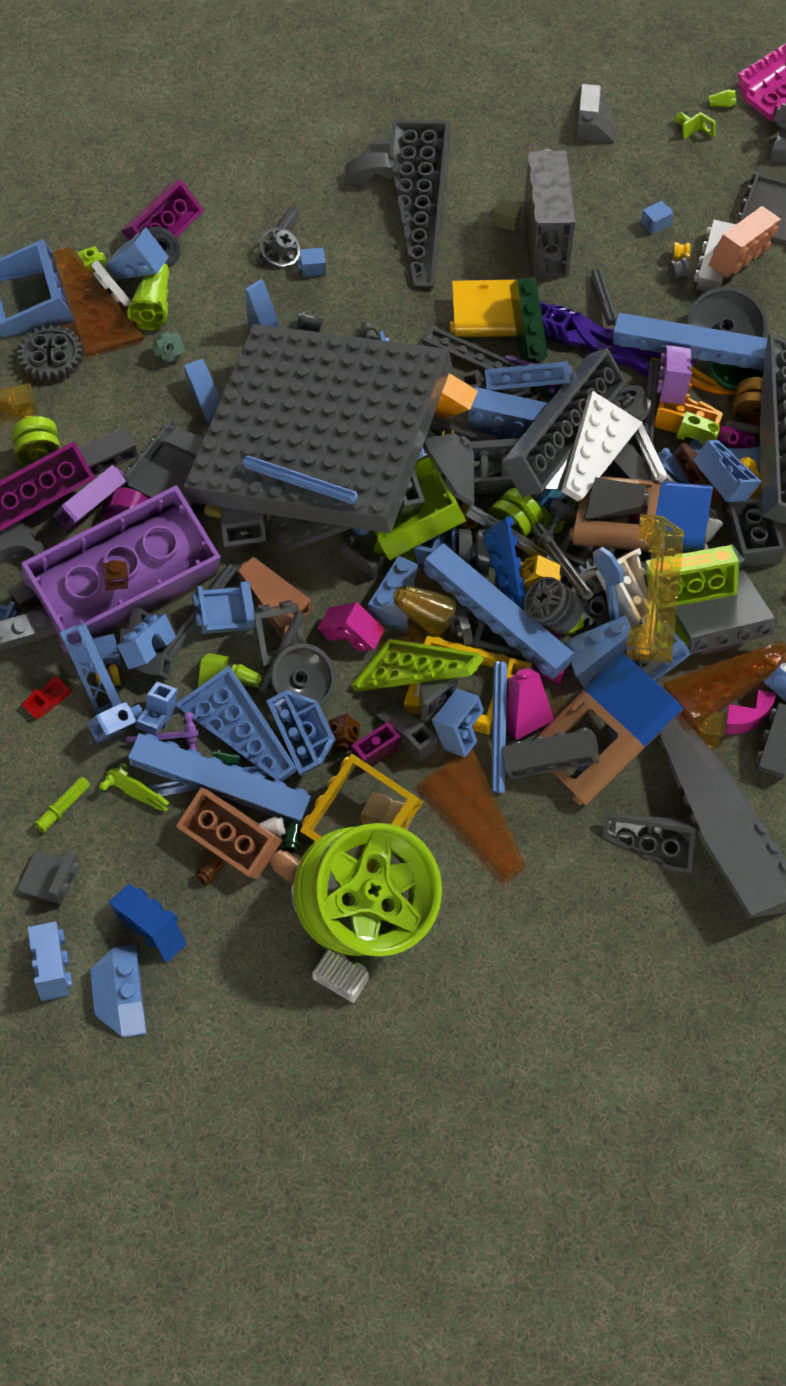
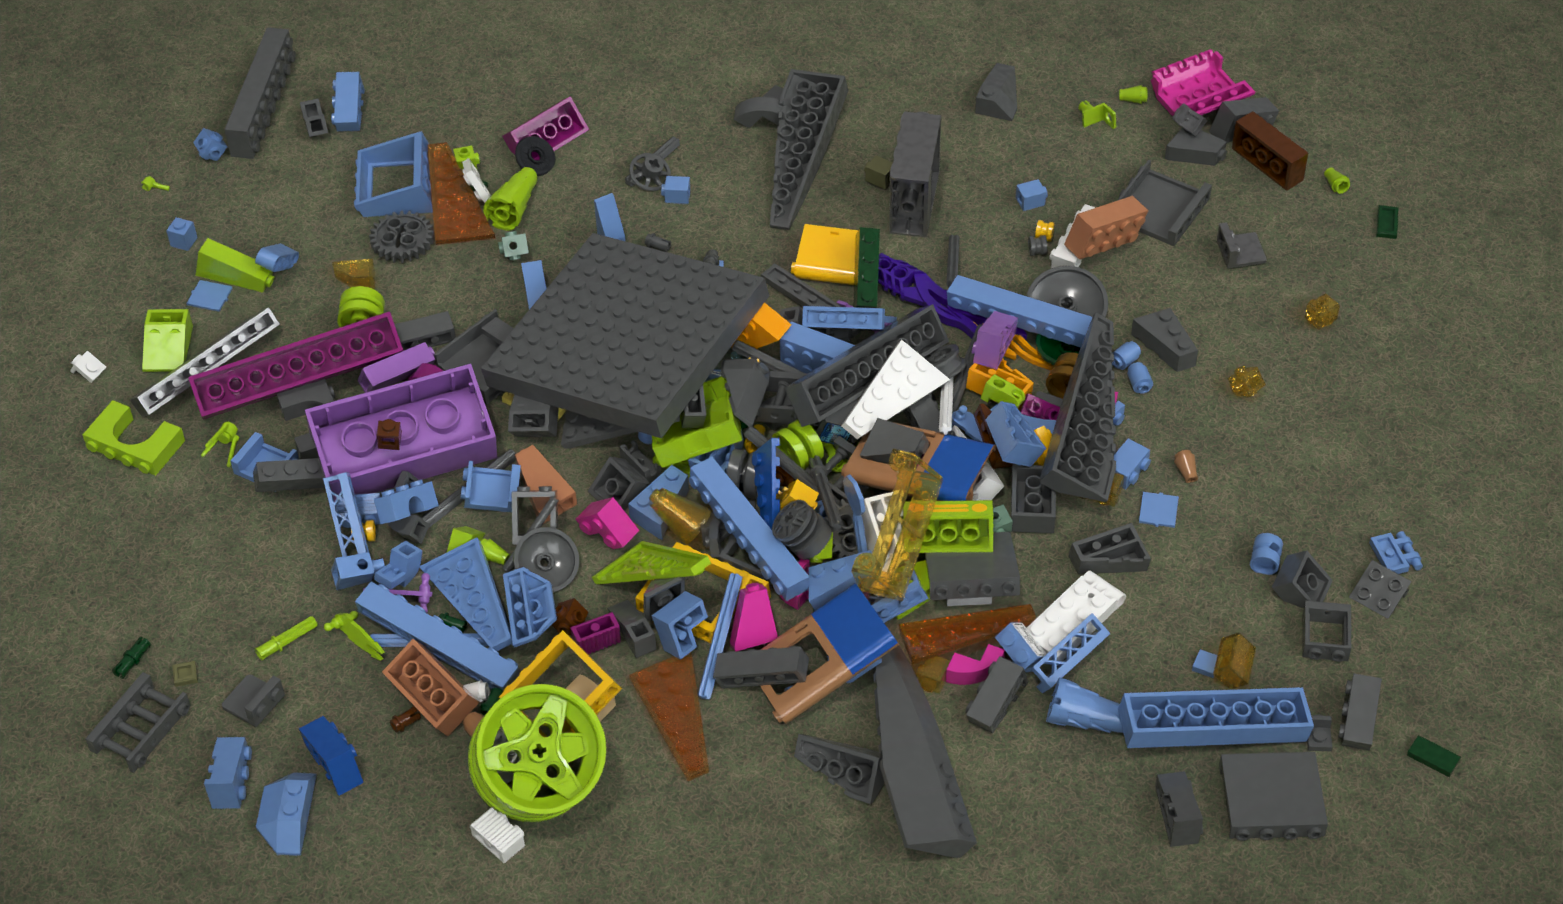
camera: 15 degrees right, 10 degrees down
(47, 698) = (297, 544): red slope -> none
(138, 257) = (508, 160): medium blue wedge -> none
(300, 479) = (586, 375): medium blue axle -> none
(349, 583) = (619, 481): none -> dark grey slope

